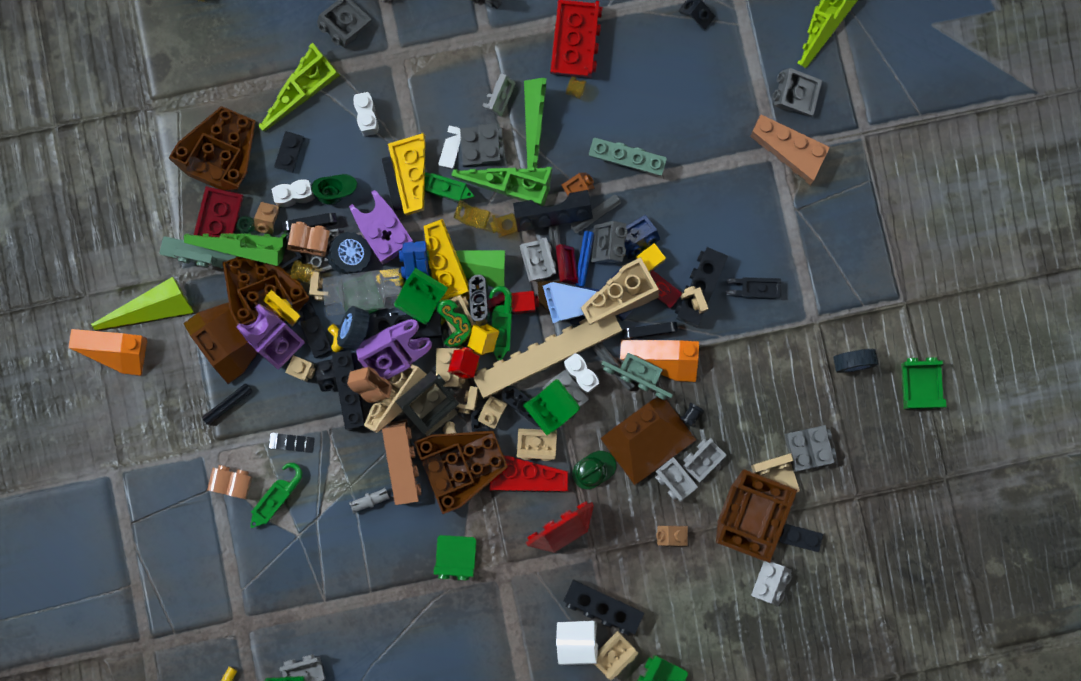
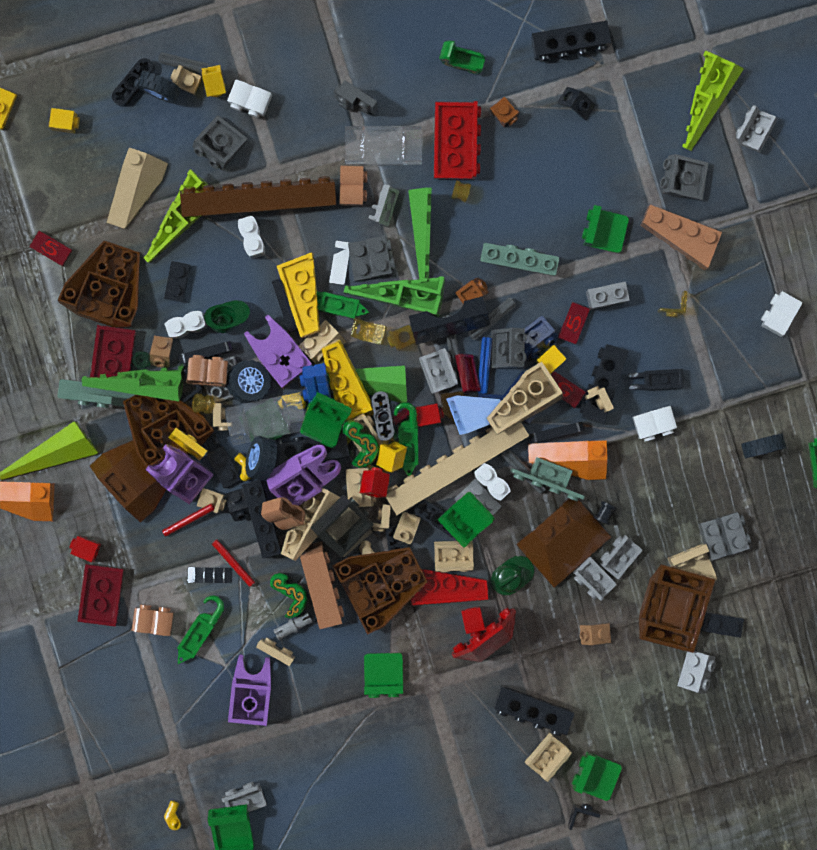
camera: 10 degrees left, 5 degrees up
(168, 109) = (51, 248): none -> dark red tile
(170, 404) = (85, 548): none -> red brick
(180, 452) = (100, 595): none -> dark red plate
(227, 404) = (141, 542): black axle -> none
(259, 52) = (136, 183): none -> tan wedge
(275, 385) = (187, 520): none -> red bar
(316, 433) = (233, 563): none -> red bar
(321, 557) = (250, 686): none -> medium lavender brick
(343, 518) = (283, 655): none -> tan plate
(373, 465) = (292, 590): none -> green animal
(375, 74) = (257, 197): none -> reddish brown brick
(416, 222) = (314, 343): none -> tan bracket
(469, 73) = (352, 185): none -> nougat brick
(503, 36) = (383, 145): none -> clear piece
(550, 510) = (473, 620): none -> red brick
(577, 643) = (510, 748): white slope -> none
(625, 16) = (505, 112): none -> dark orange bracket
(676, 225) = (573, 323): none -> dark red tile
(711, 200) = (607, 296): none -> light grey brick
(714, 136) = (605, 230): none -> green bracket
(749, 329) = (655, 422): none -> white brick
(775, 222) = (674, 312): none -> clear yellow bracket
(870, 51) = (755, 129): none -> light grey bracket
(883, 233) = (781, 313): none -> white brick

